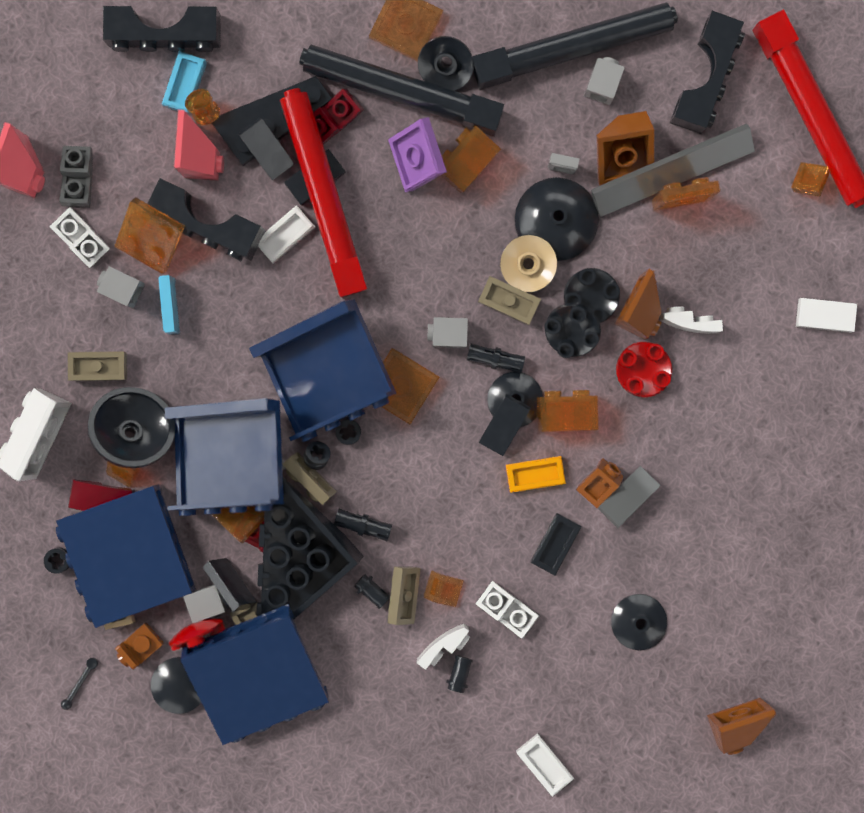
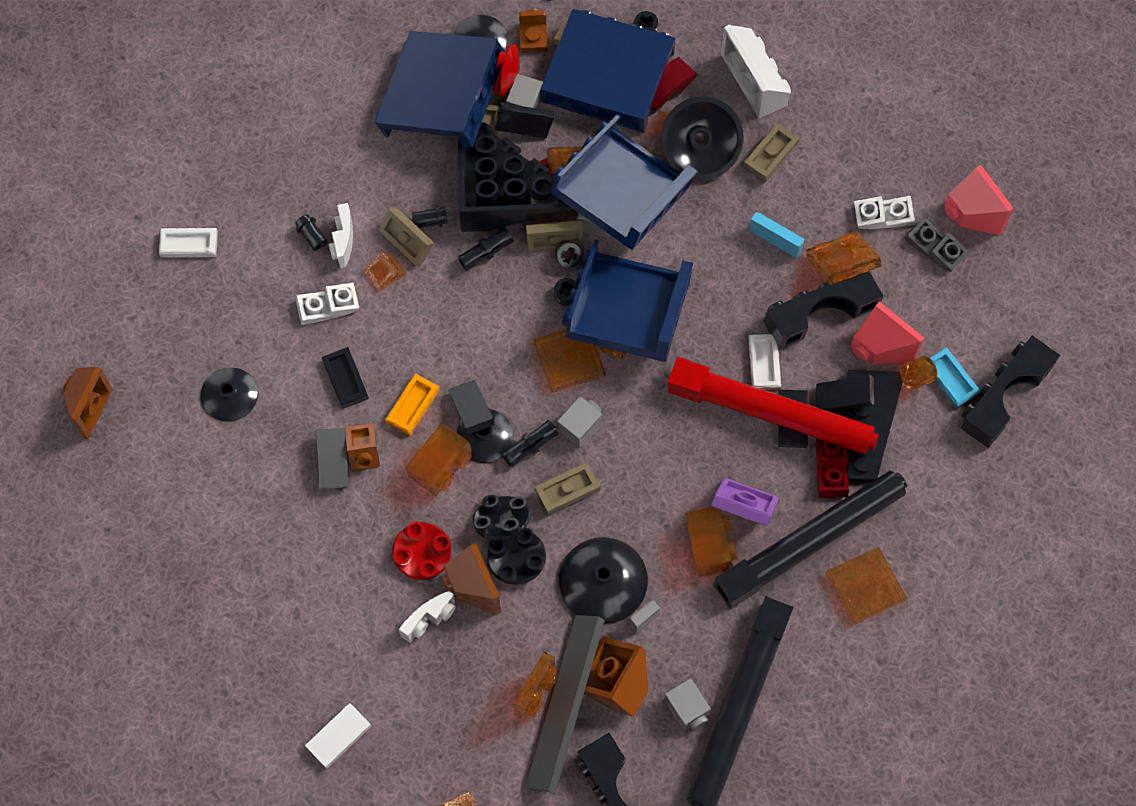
camera: 125 degrees right, 20 degrees down
(119, 287) = (820, 210): light grey brick -> none
(436, 72) = (805, 585): black dish -> none
(544, 263) = (584, 512): tan dish -> none

